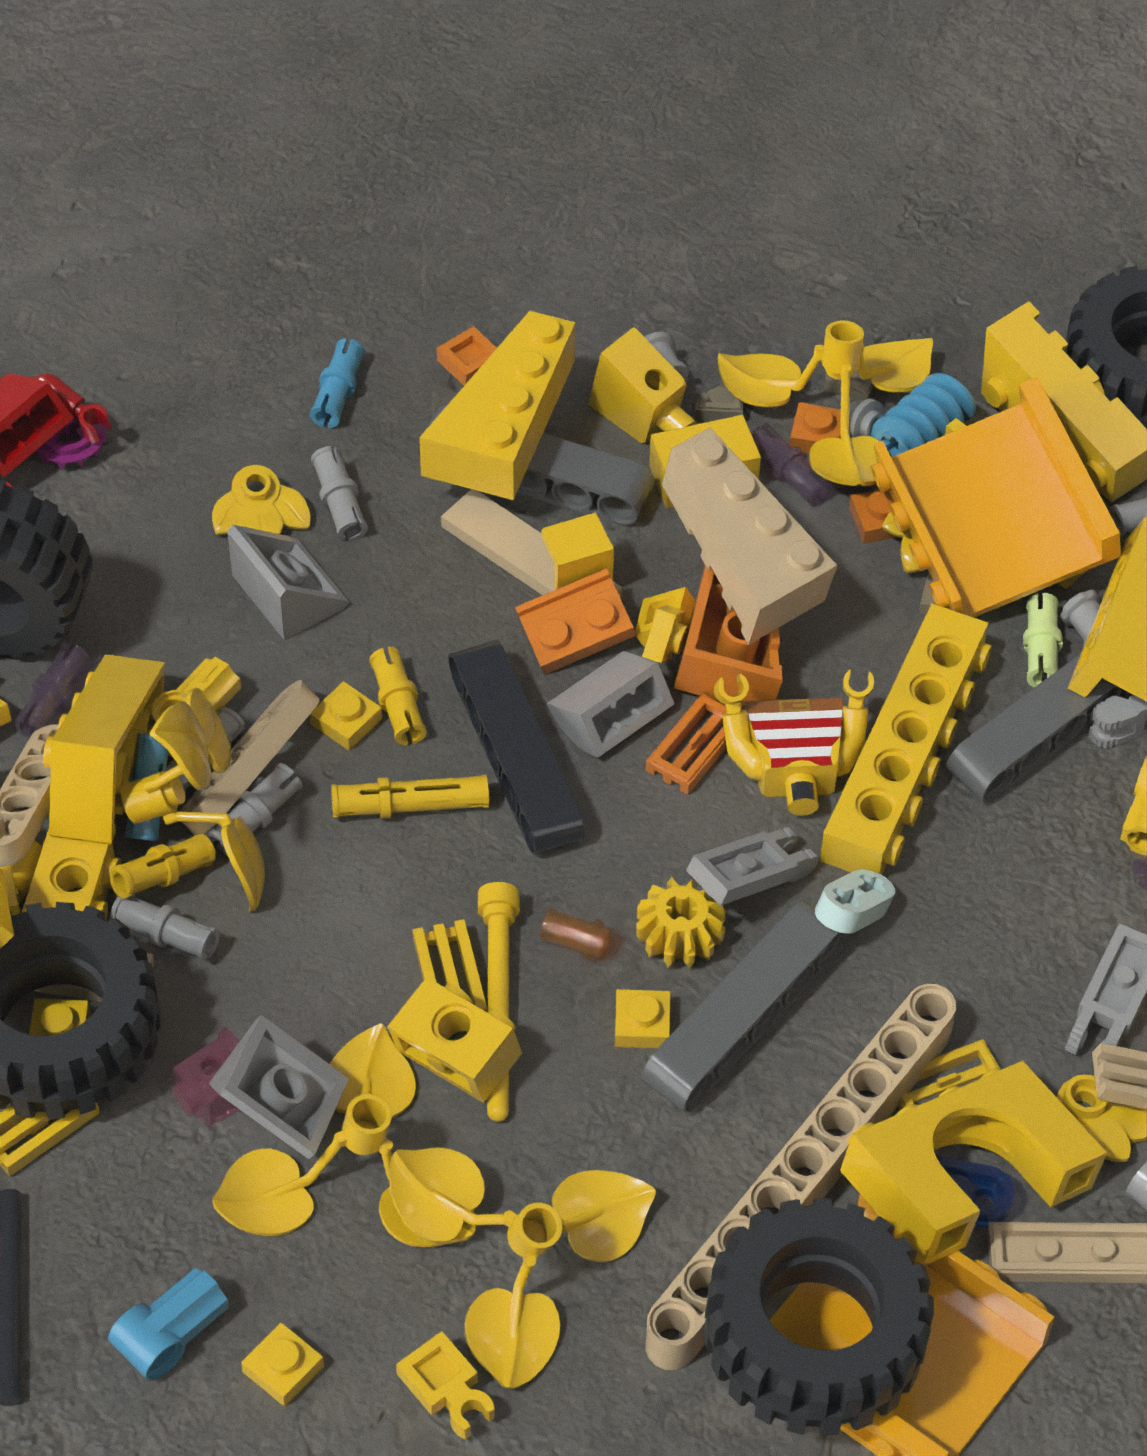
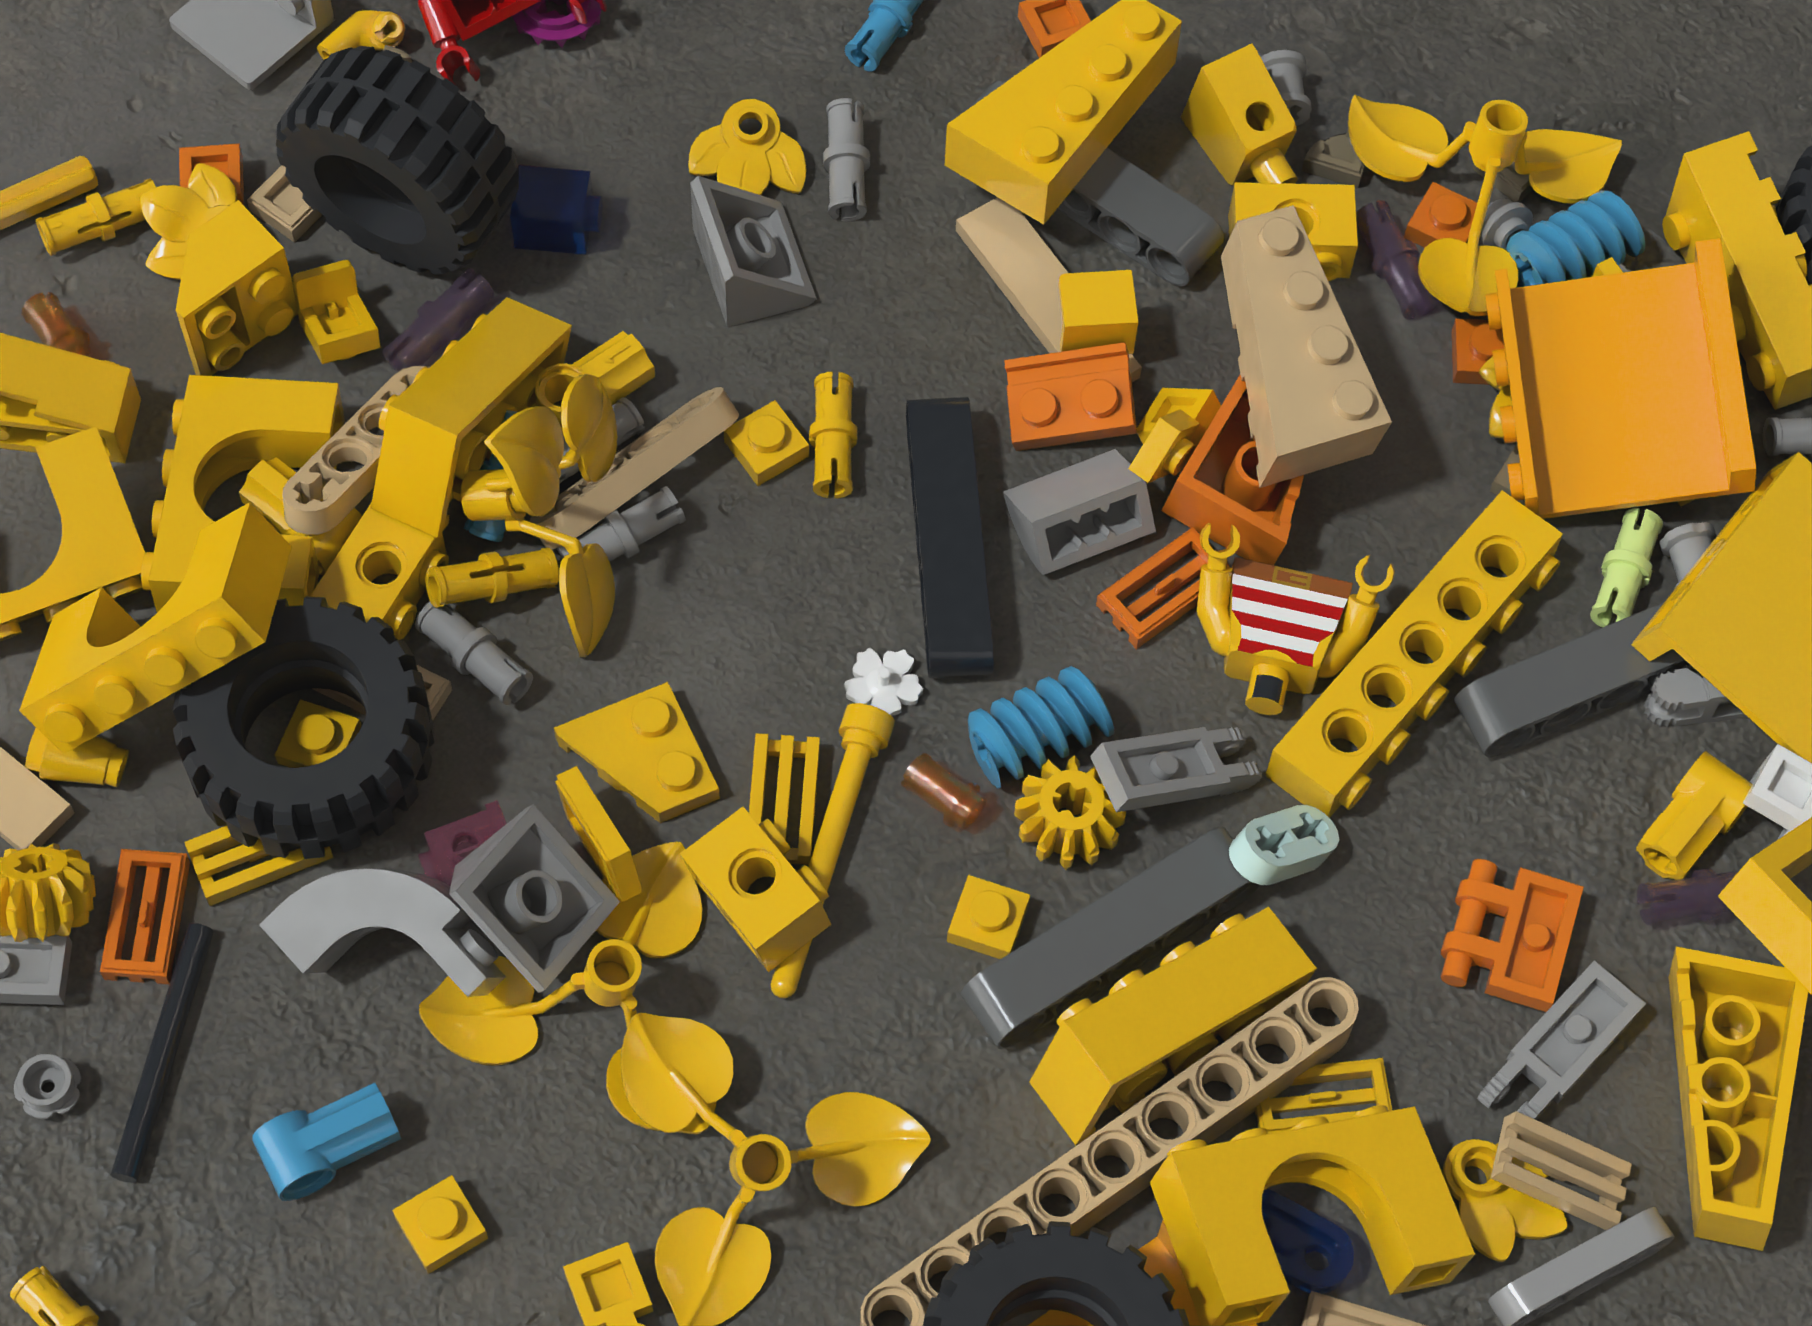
camera: 15 degrees right, 10 degrees up
(121, 585) = (555, 210): none -> clear blue brick
(138, 1131) = (339, 909): none -> light grey arch
(315, 1031) = (598, 834): none -> yellow tile
(327, 967) = (644, 751): none -> yellow wing
(409, 796) = (805, 565): yellow pin -> none
(499, 865) = (886, 683): none -> white plant
(632, 862) = (1036, 722): none -> dark azure piece
(807, 1052) = (1166, 1018): none -> yellow wedge
(1066, 922) = (1532, 940): none -> orange plate

